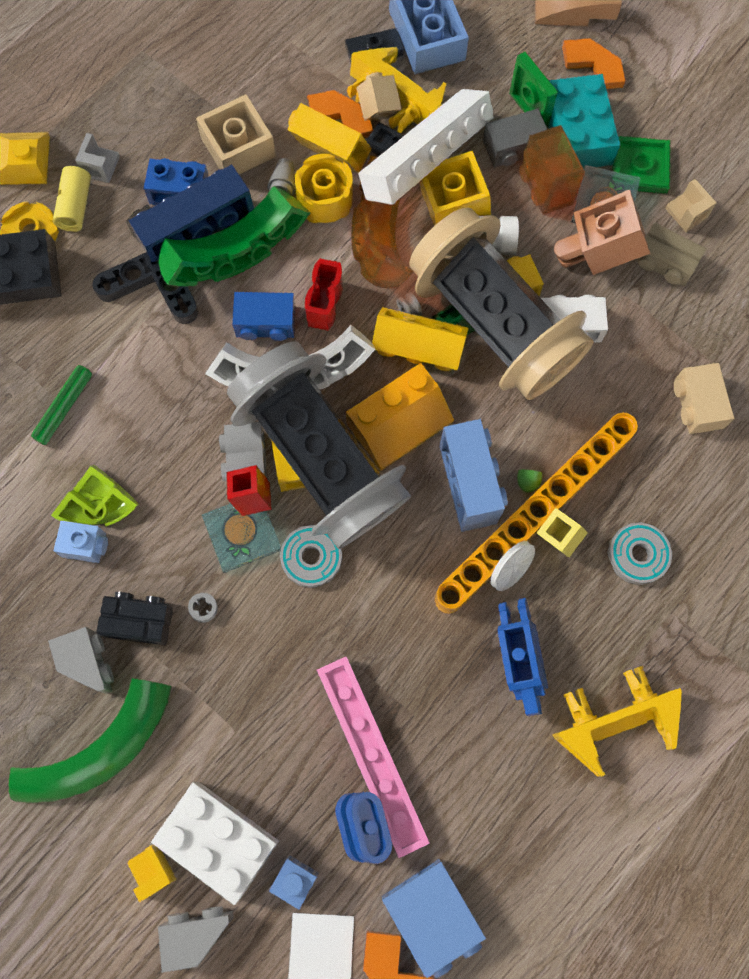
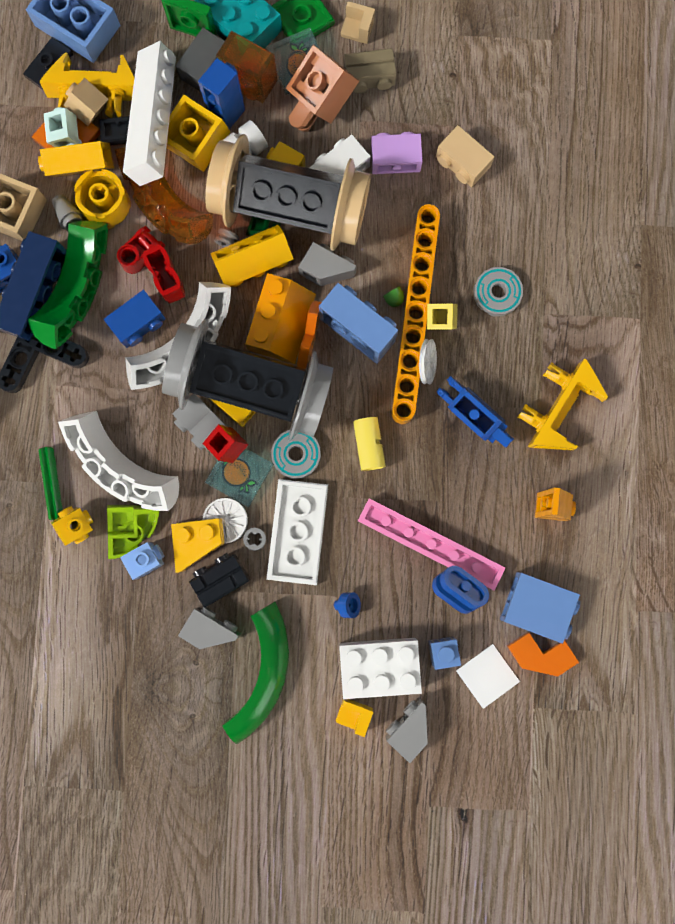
camera: 35 degrees left, 10 degrees up
(33, 454) = (66, 517): none -> yellow brick
(128, 435) = (113, 469): none -> white brick
(145, 563) = (195, 540): none -> yellow wing
(190, 567) = (232, 515): none -> white wheel
(238, 749) = (348, 605): none -> blue tile
(249, 635) = (297, 532): none -> white tile
(315, 250) = (136, 246): none -> red piece
(339, 102) = (61, 127): none -> light aqua brick
(389, 602) = (368, 443): none -> light yellow pin
(421, 449) = (309, 337): none -> orange tile
(482, 399) = (324, 266): none -> light grey slope
(509, 173) = (222, 92): none -> blue brick
(534, 819) = (555, 505): none -> light orange slope
(636, 347) = (396, 153): none -> lavender brick

